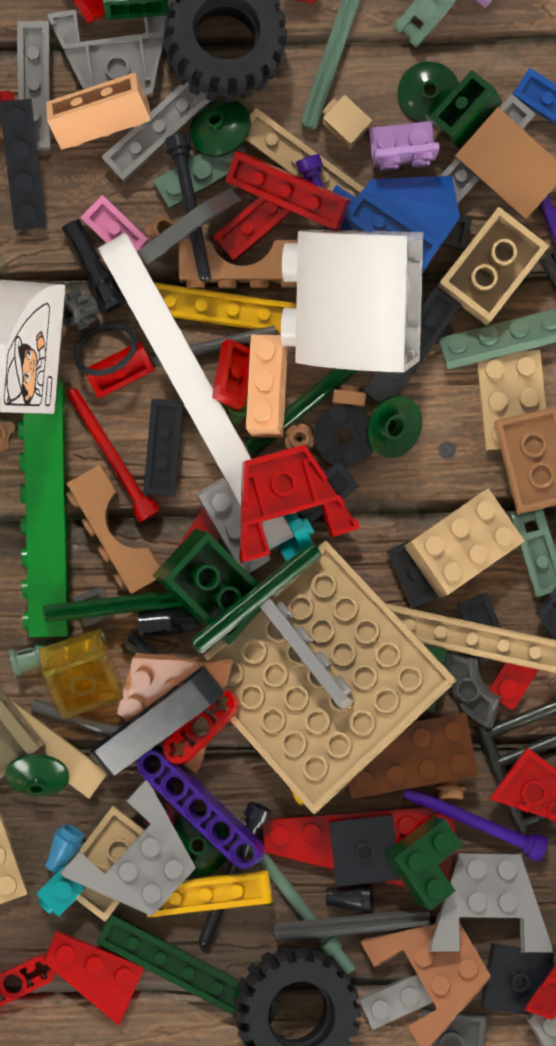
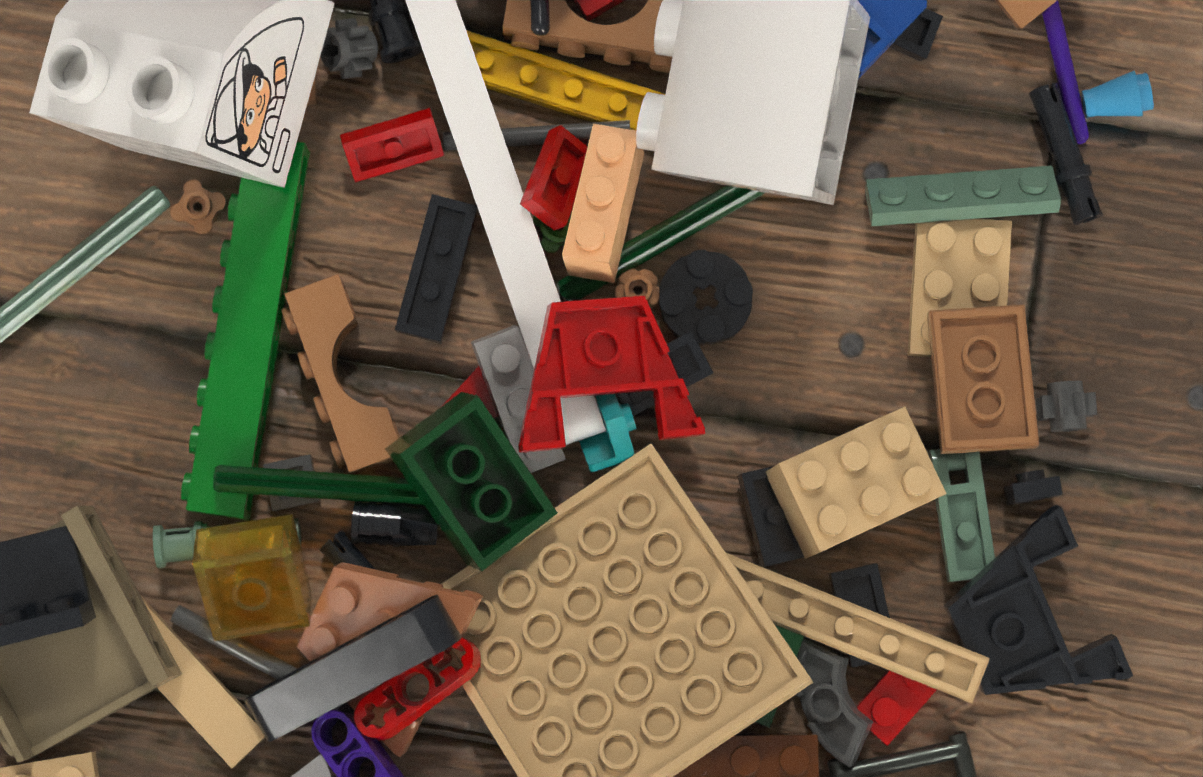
camera: 10 degrees right, 5 degrees down
(37, 775) = (160, 719): dark green dish -> none
(77, 353) = (386, 136): black tyre -> none
(143, 506) = (392, 349): red piece -> none
(256, 597) = (532, 508): dark green axle -> none
(316, 662) = (606, 619): light grey plate -> none
(349, 395) = (721, 239): medium nougat plate -> none
(403, 428) = (794, 299): dark green dish -> none
(435, 317) = (795, 219): black plate -> none
(493, 266) = (962, 87): tan brick -> none

